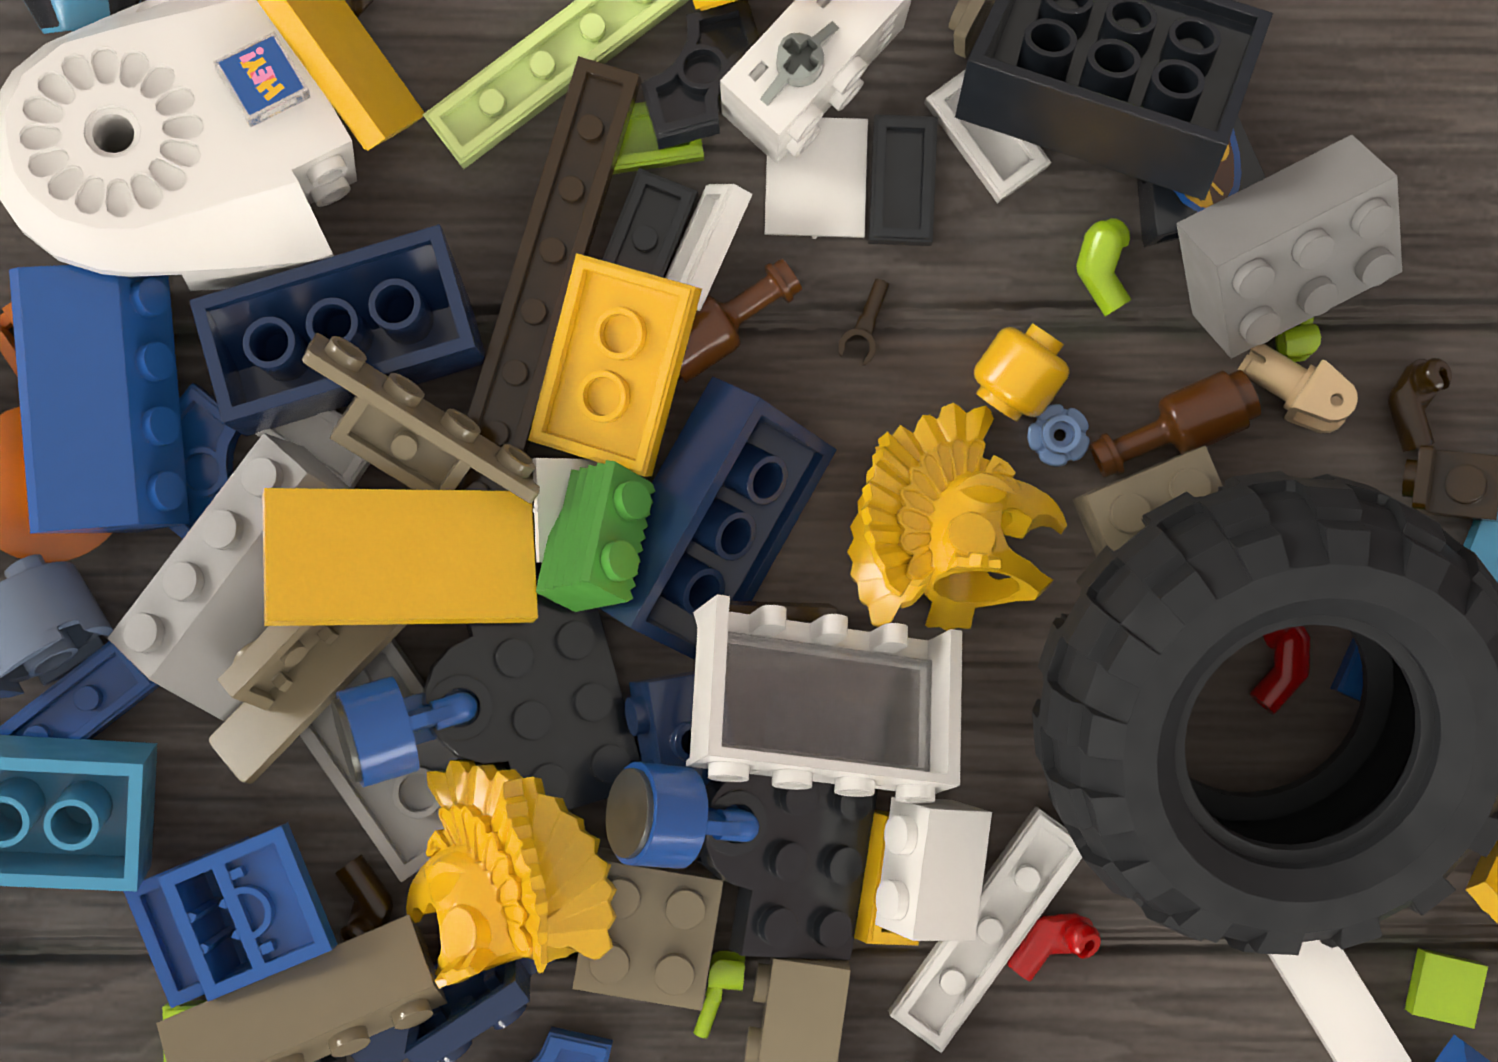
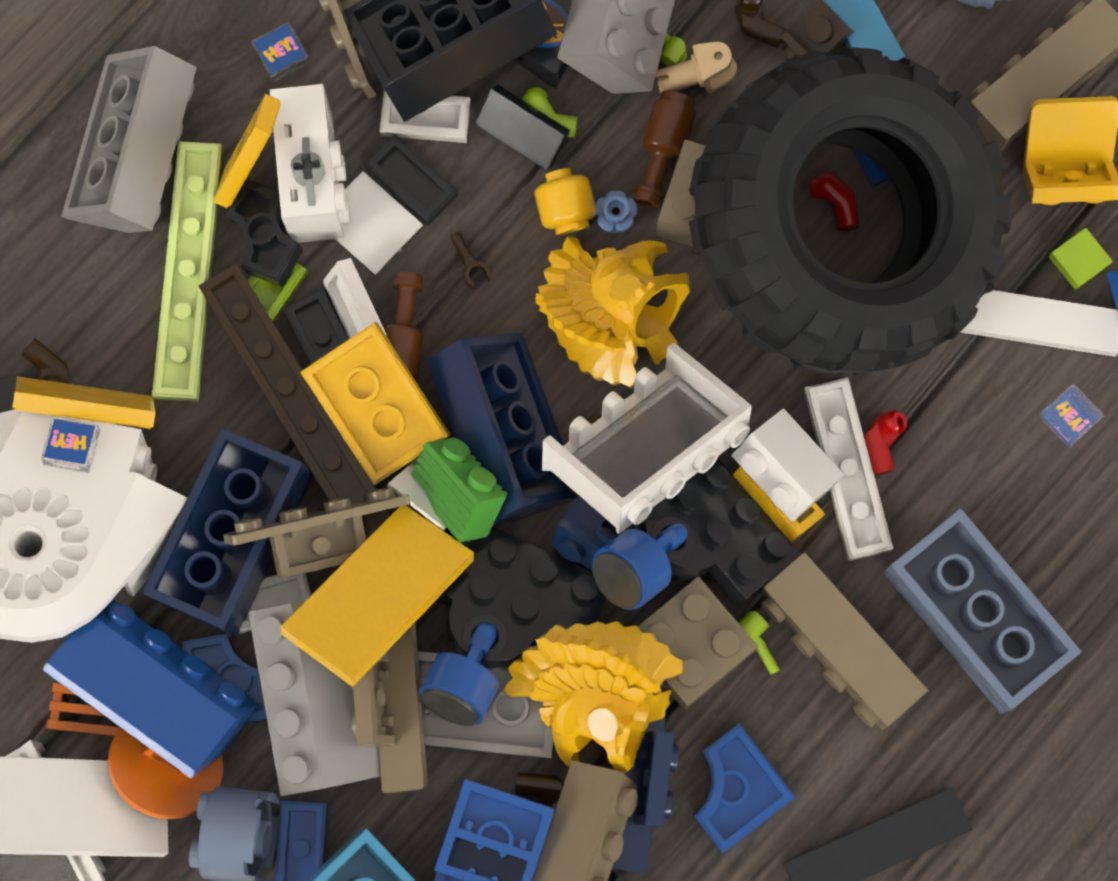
camera: 45 degrees left, 10 degrees down
(1066, 250) = (522, 127): none -> tile

